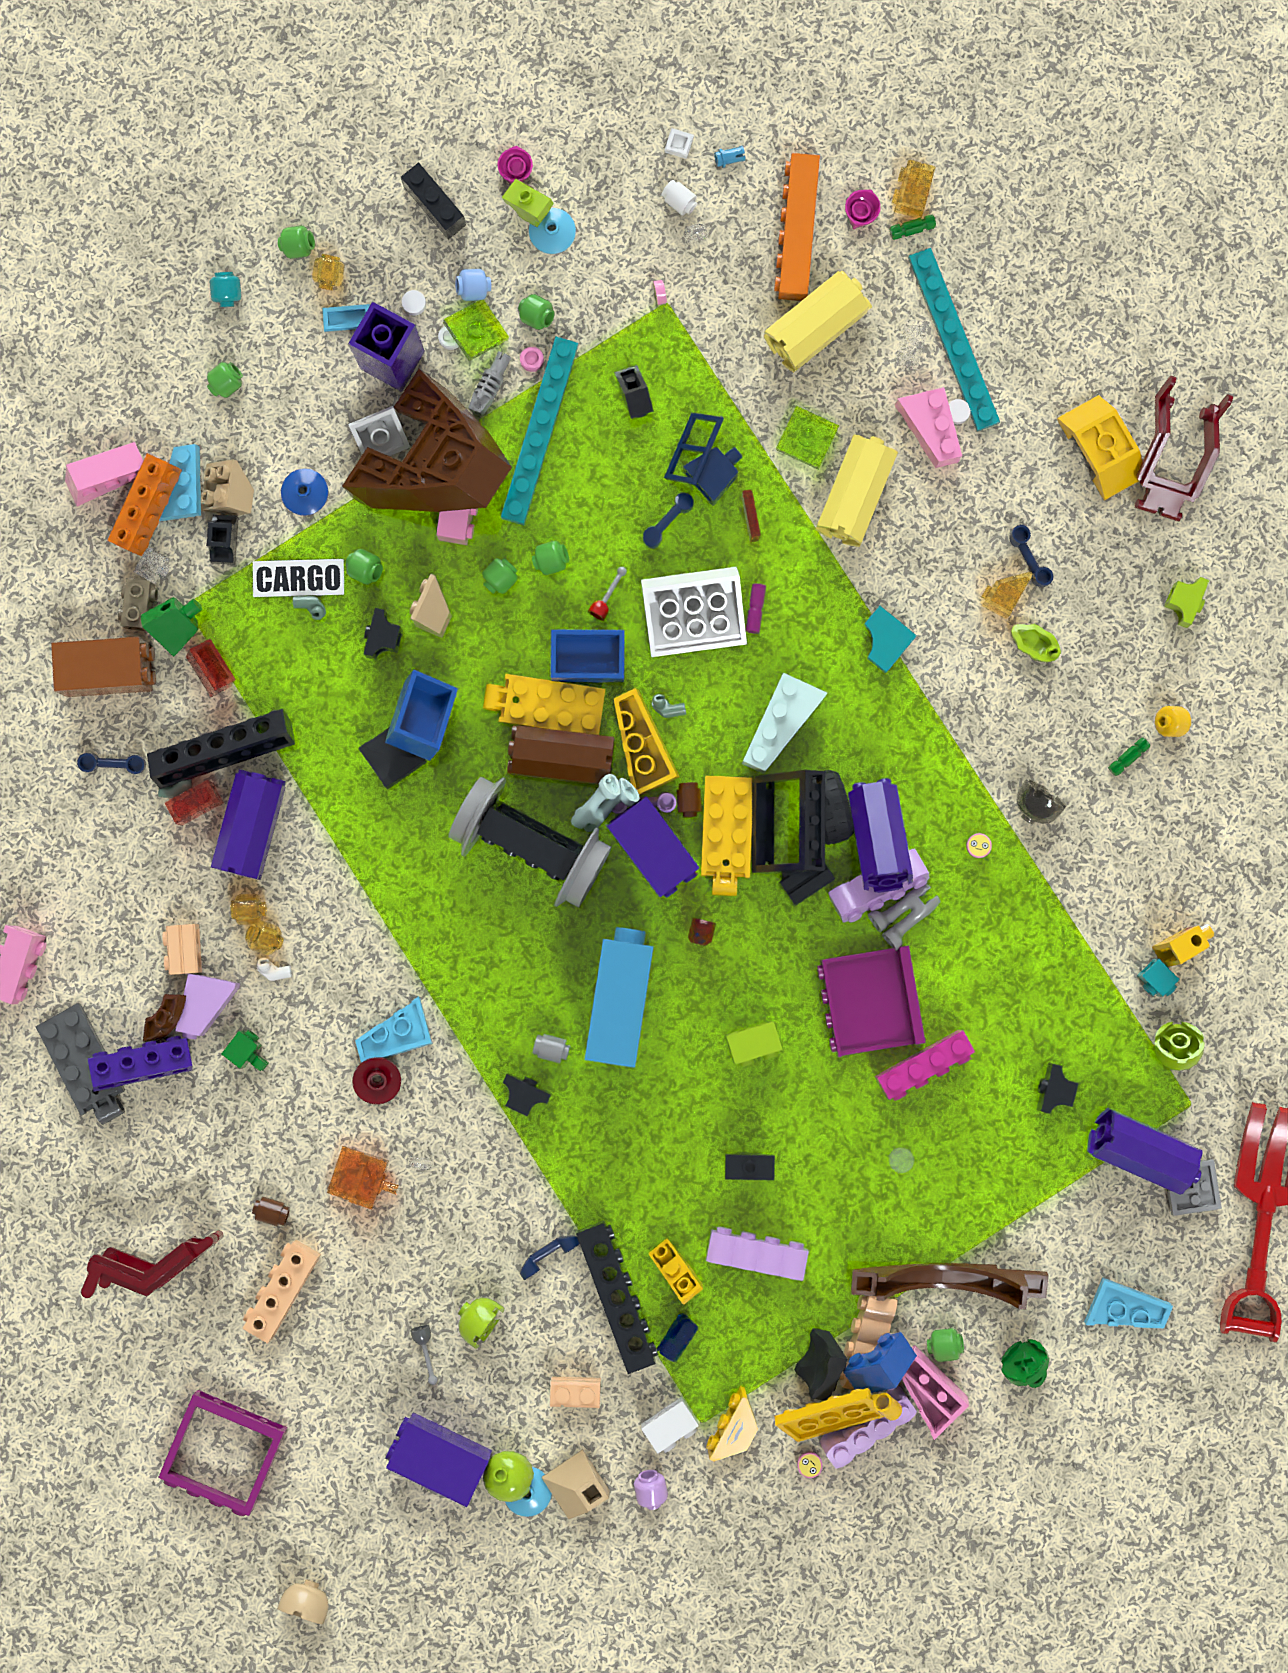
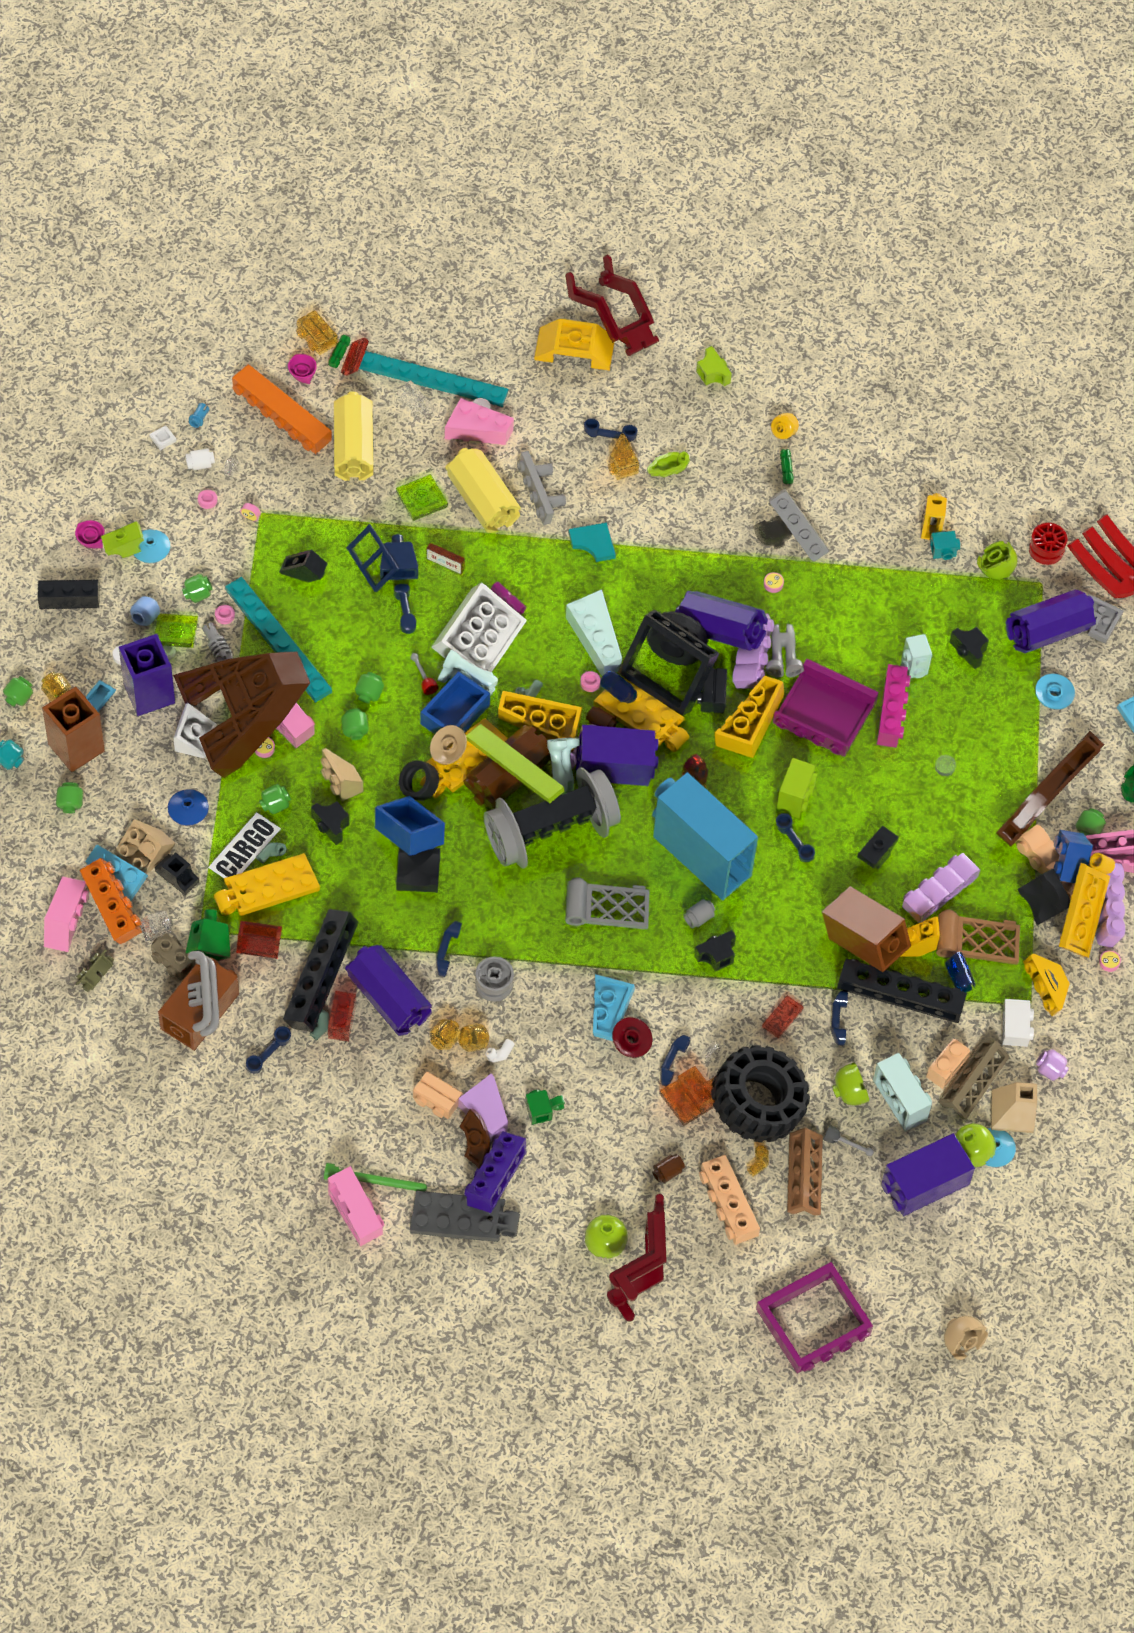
camera: 60 degrees left, 25 degrees down
(39, 915) = (331, 1169): none -> bright green piece
(62, 546) = (88, 976): none -> olive hinge
(96, 671) = (205, 994): none -> light grey piece
(163, 1205) = (606, 1236): none -> lime cylinder
(271, 632) = (267, 886): none -> yellow hinge
(276, 328) = (73, 729): none -> dark orange brick
(318, 849) = (452, 931): none -> dark blue bar
(335, 898) = (494, 979): none -> light grey wheel
(345, 1289) = (761, 1161): none -> clear yellow arm
(360, 1336) = (801, 1169): none -> medium nougat fence
(365, 1138) = (680, 1044): none -> dark blue bar
(405, 1281) = (773, 1071): none -> black tyre
(414, 517) = (266, 749): none -> tile
(481, 925) = (580, 898): none -> light grey piece
(492, 692) = (407, 775): none -> black tyre
(508, 1375) = (902, 1091): none -> light aqua brick
(510, 1200) = (782, 1016): none -> clear red tile
(531, 677) = (443, 741): none -> tan dish
(552, 766) = (515, 763): none -> lime tile
(581, 1421) = (973, 1073): none -> dark tan fence
(634, 621) = (455, 663): none -> light aqua piece
(644, 240) = (207, 499): none -> bright pink tile
(644, 1224) = (866, 929): none -> brick
(695, 1099) = (785, 826): none -> dark blue bar
(717, 1297) = (951, 937): none -> medium nougat piece
(726, 755) = (590, 681): none -> bright pink tile
(730, 792) = (618, 687): none -> clear blue arm
(798, 942) = (749, 723): none -> yellow wedge
(909, 526) = (538, 496): none -> light grey plate
(916, 247) = (354, 356): none -> clear red tile
(995, 1050) = (916, 656): none -> light aqua brick
(1056, 825) = (798, 525): none -> light grey plate
(1080, 1214) = (1055, 684): none -> medium azure dish
(1254, 1082) = (1048, 543): none -> red wheel

